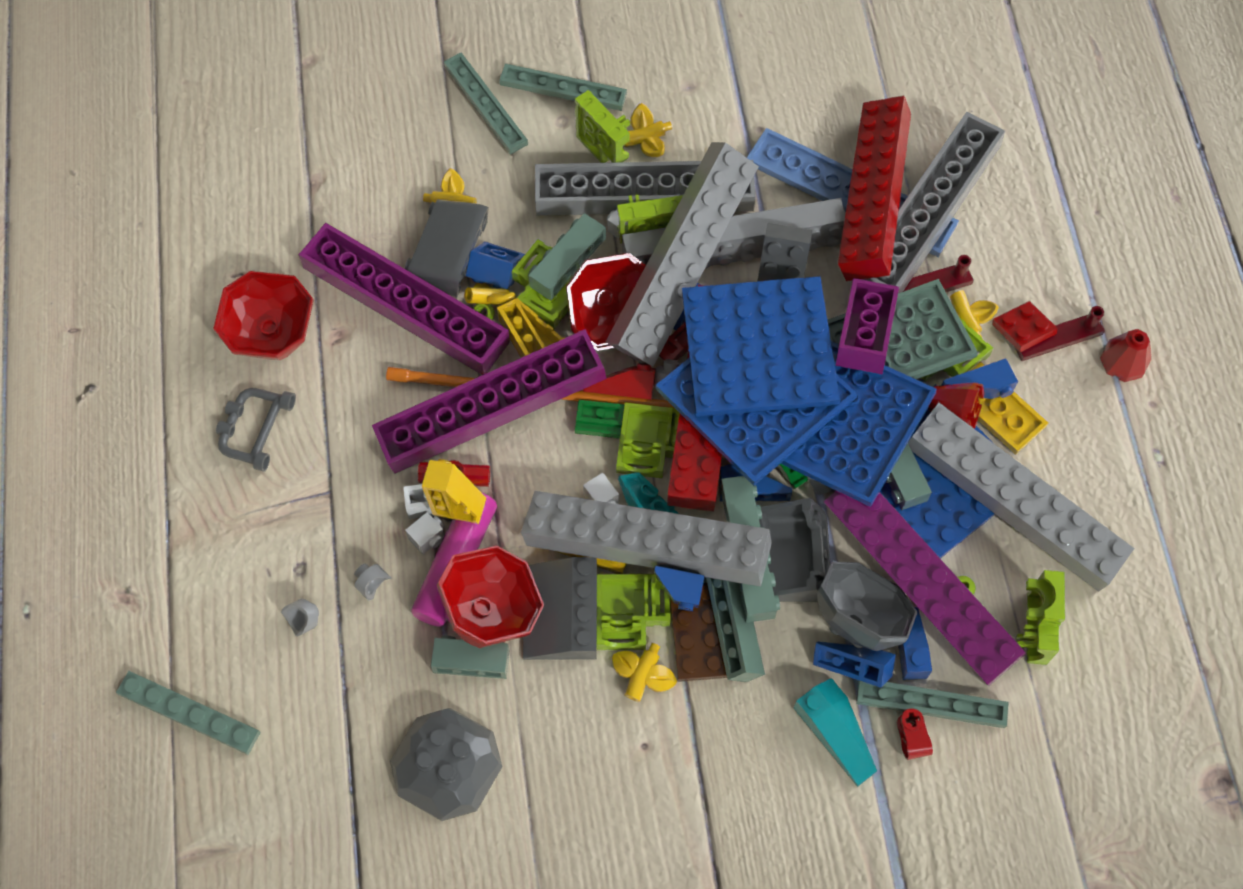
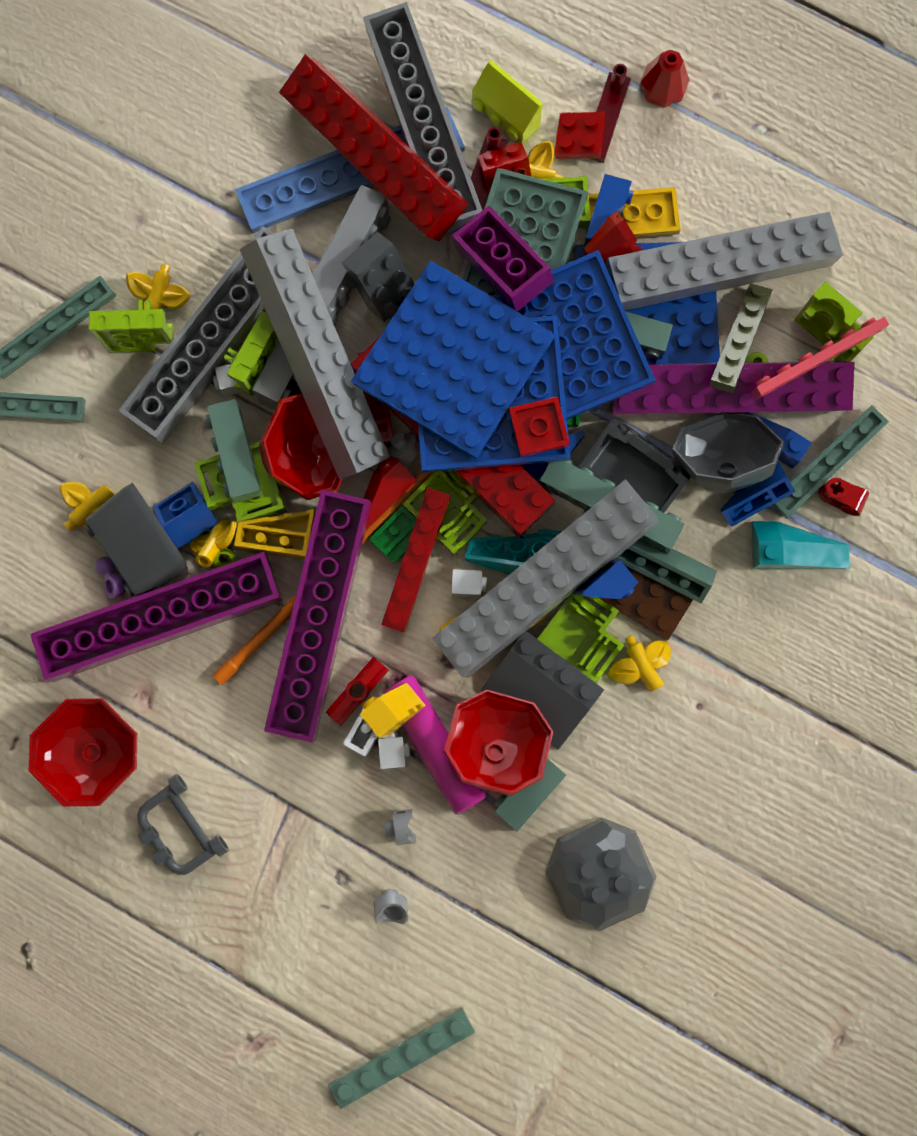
camera: 50 degrees left, 15 degrees up
(409, 249) = (112, 581): none -> medium lavender plate
(589, 442) = (416, 560): none -> red plate
(758, 439) = (539, 427): none -> red plate
(957, 288) = (508, 158): none -> red bracket
(968, 552) = (740, 338): none -> olive plate
(998, 257) = (507, 103): none -> neon yellow slope
(1008, 619) = (826, 353): none -> coral plate

